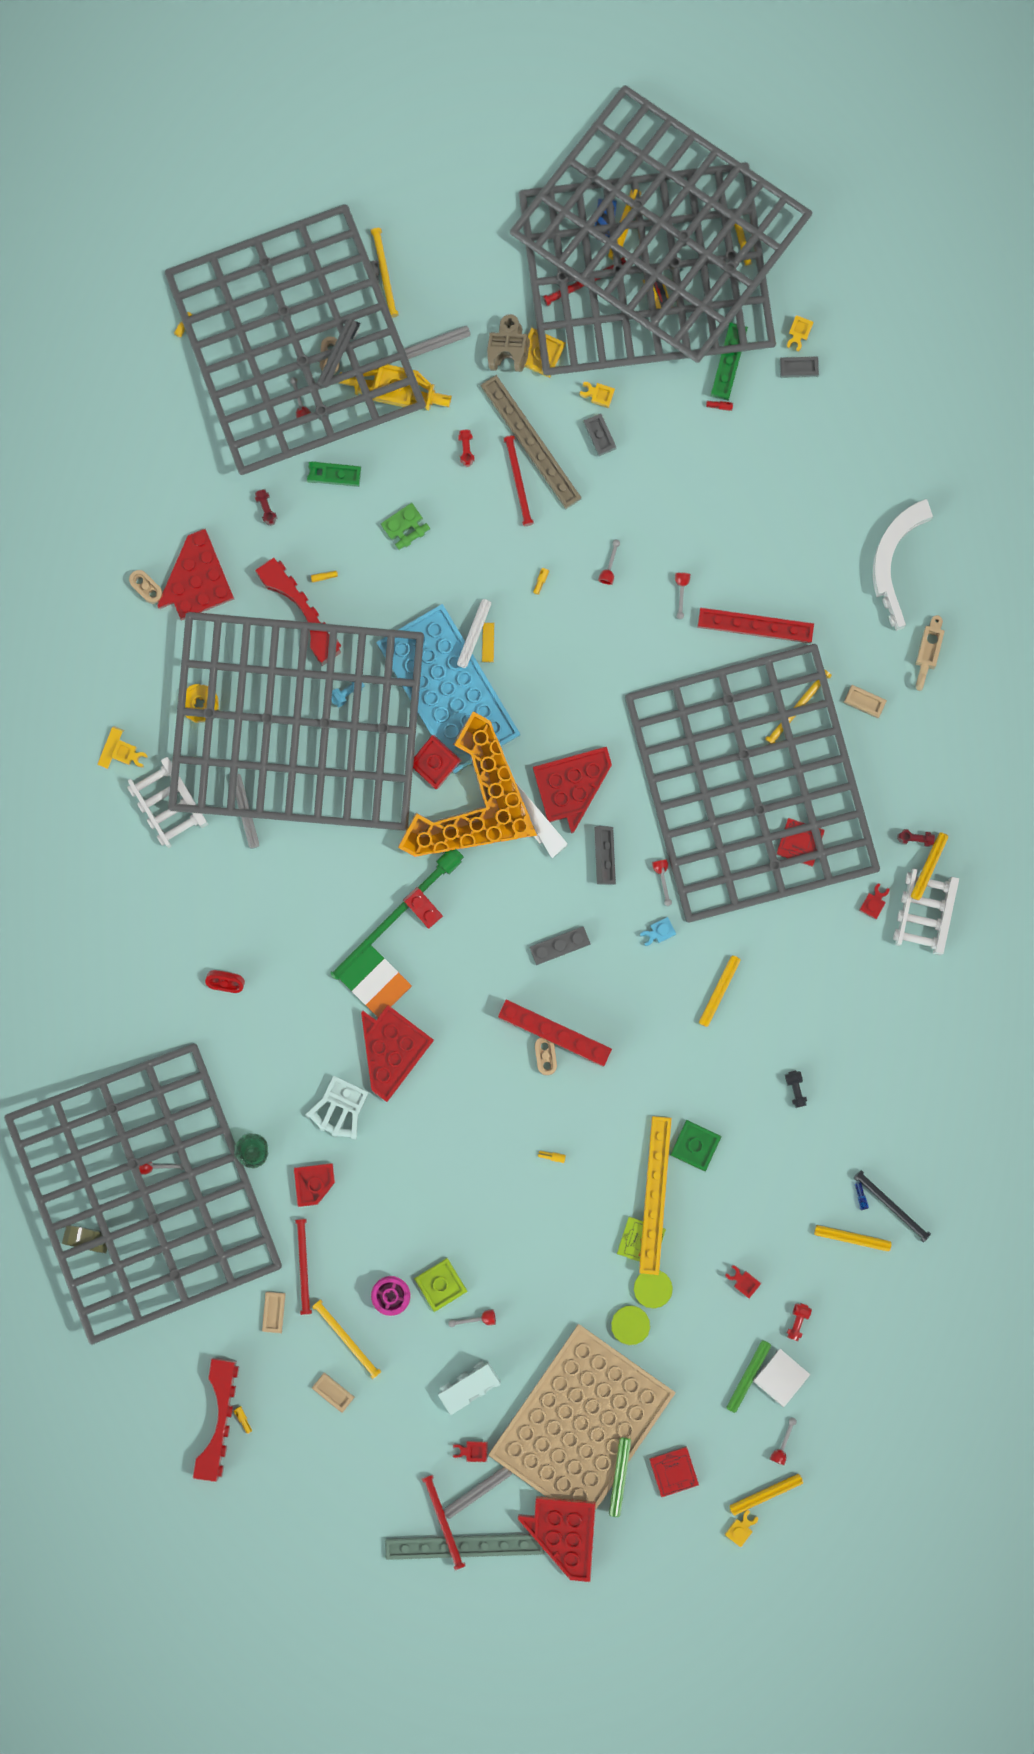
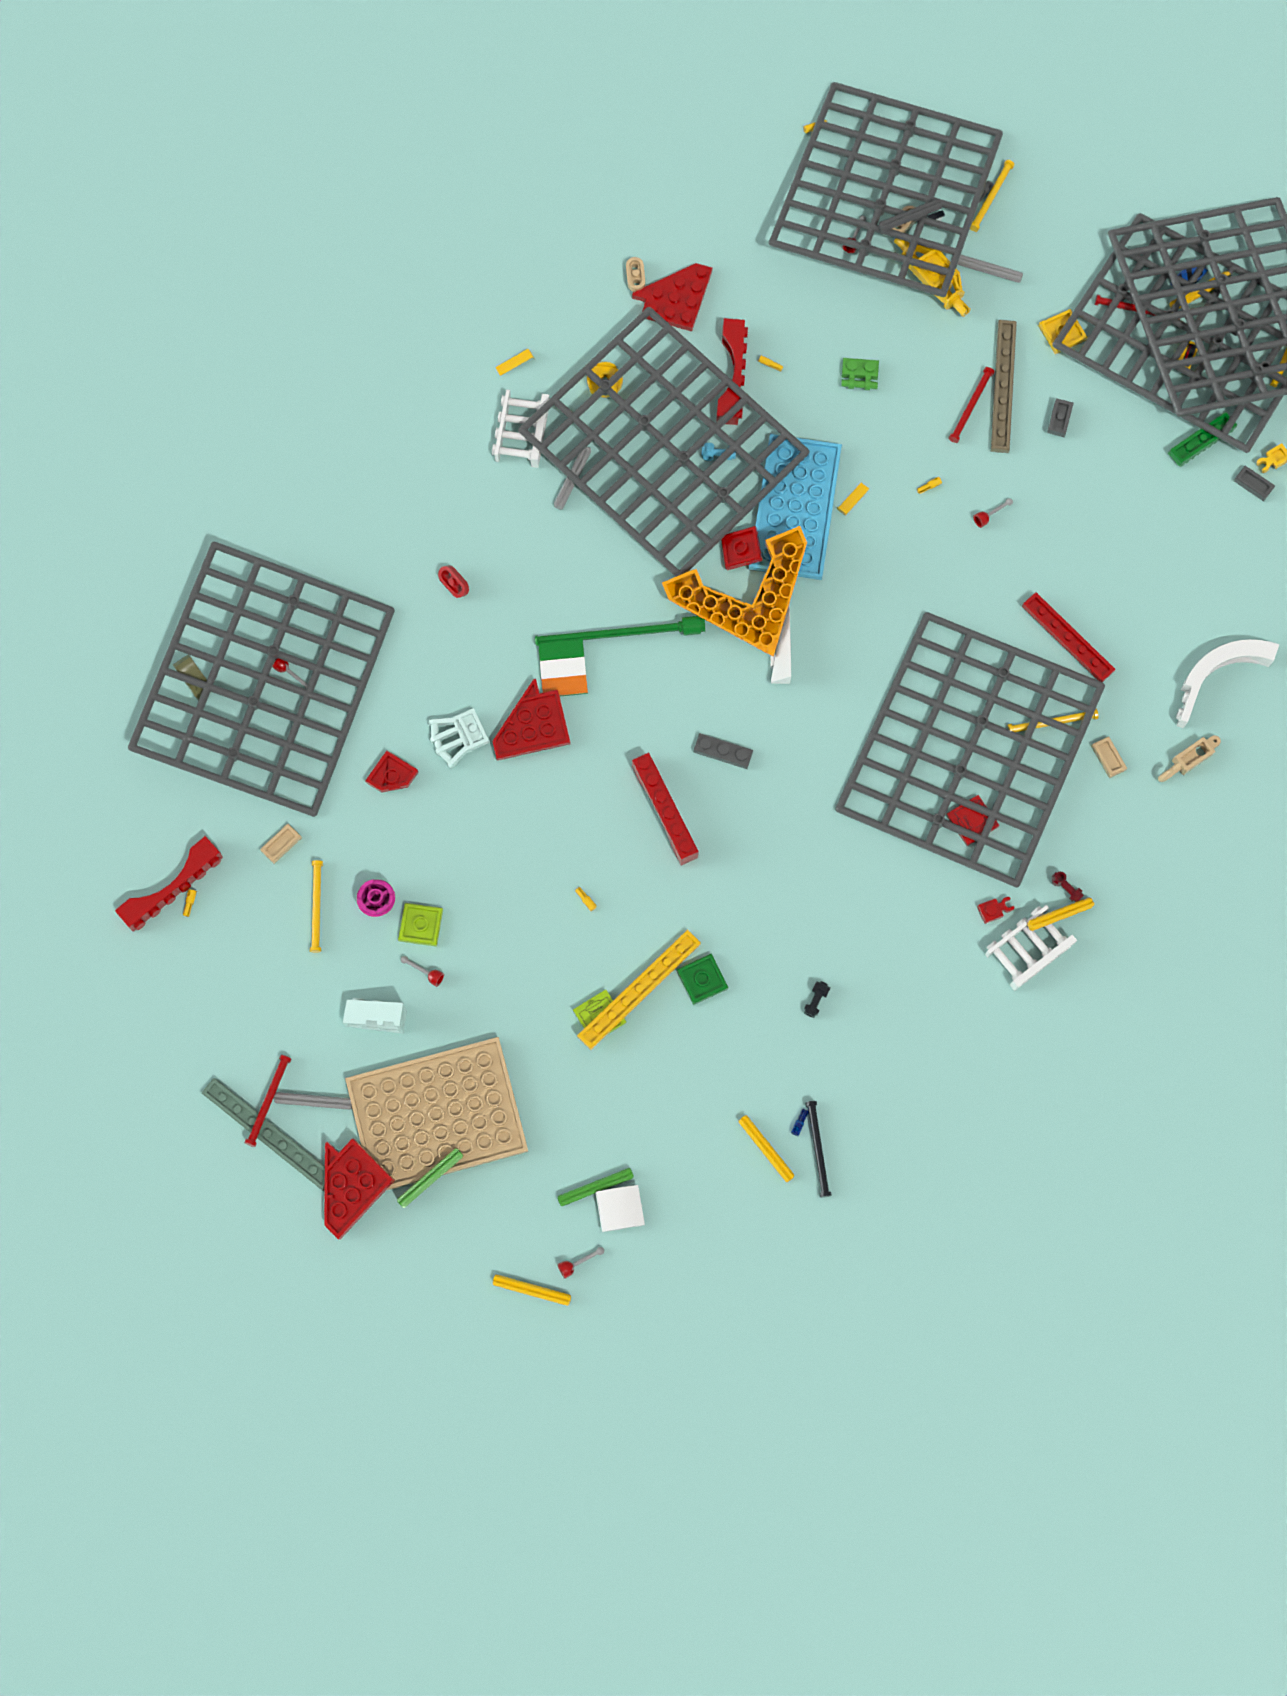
camera: 40 degrees right, 10 degrees down
(126, 753) = (522, 374): yellow plate -> none
(251, 1150) = (367, 712): clear green hair -> none
(269, 517) = (765, 292): dark red bar -> none
(303, 1266) = (331, 828): red bar -> none
(333, 1392) = (272, 937): tan tile -> none
(334, 474) = (838, 300): green plate -> none
(422, 908) = (643, 642): red plate -> none
(467, 458) = (946, 359): red bar -> none
(474, 633) = (847, 481): white axle -> none
(475, 1451) = (337, 1067): red plate -> none
(508, 344) = (1043, 305): dark tan piece -> none
(545, 1056) = (643, 821): tan plate -> none
(571, 784) = (830, 642): red wing -> none
(601, 394) = (1083, 390): yellow plate -> none
(605, 855) = (812, 712): dark grey plate -> none
(630, 1325) = (537, 1072): lime tile -> none
(653, 1290) = (577, 1059): lime tile -> none
(661, 867) = (848, 753): hinge -> none
(661, 931) = (809, 801): medium azure plate -> none
(674, 1471) = (475, 1211): red tile -> none
(682, 580) = (1038, 563): hinge -> none
(719, 991) = (817, 879): yellow axle -> none
(722, 405) = (1170, 465): red pin -> none
(740, 1530) = (487, 1301): yellow plate -> none
(745, 1283) = (653, 1112): red plate -> none
(802, 1312) = (678, 1171): red bar -> none

